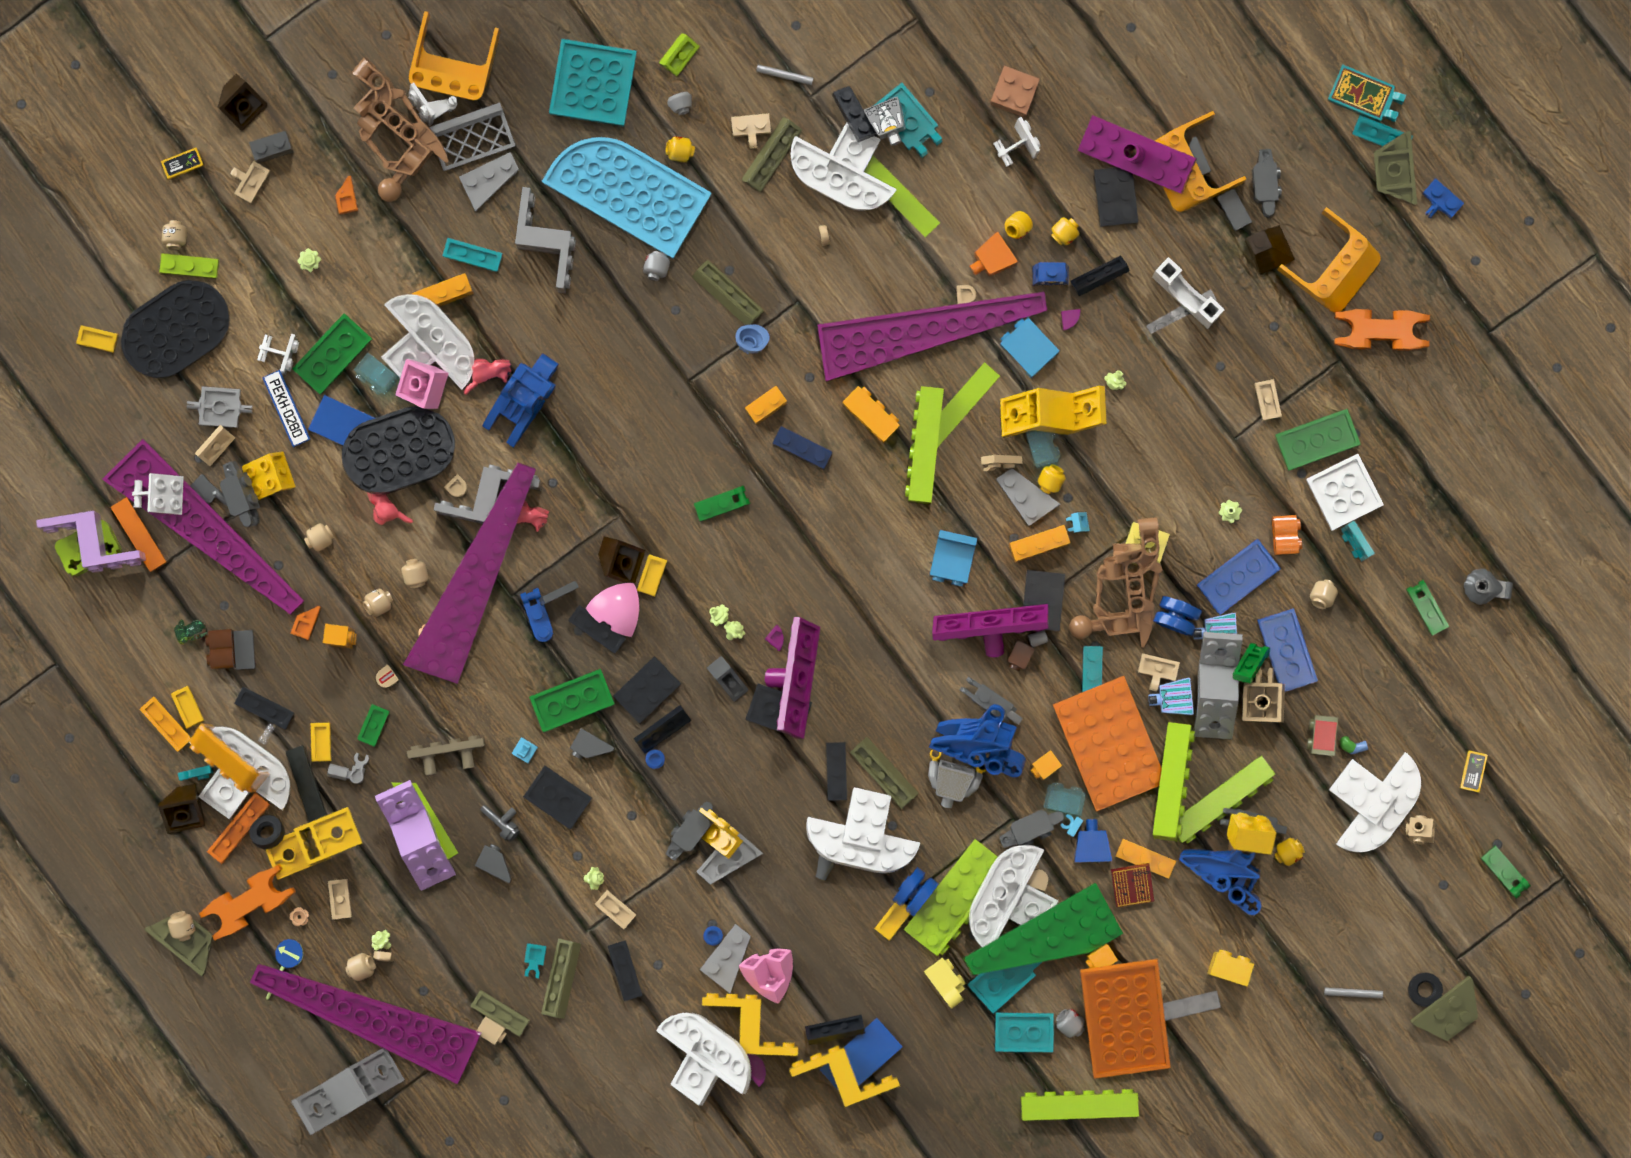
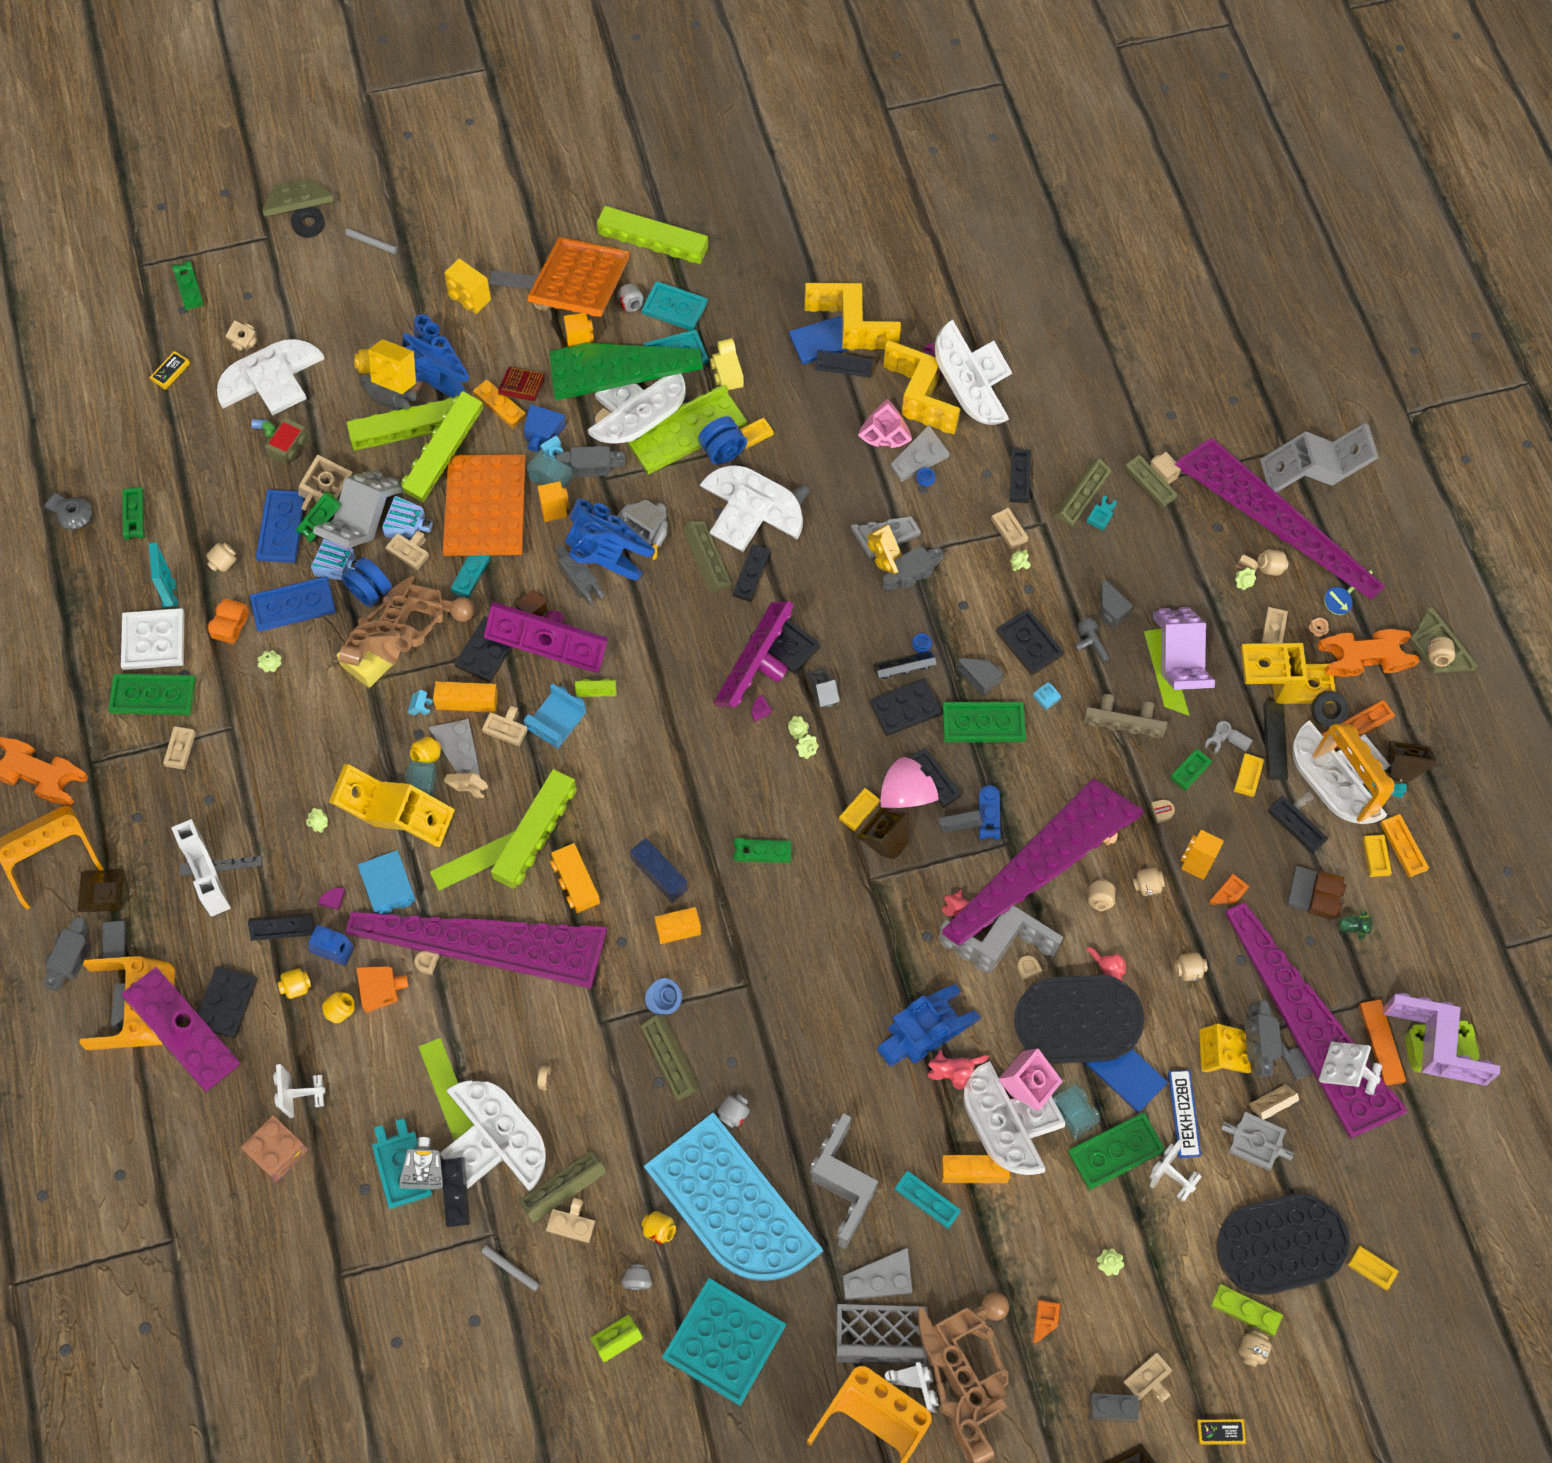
camera: 165 degrees left, 20 degrees down
(921, 602) = (590, 688): none -> lime plate
(992, 529) = (506, 728): none -> tan plate

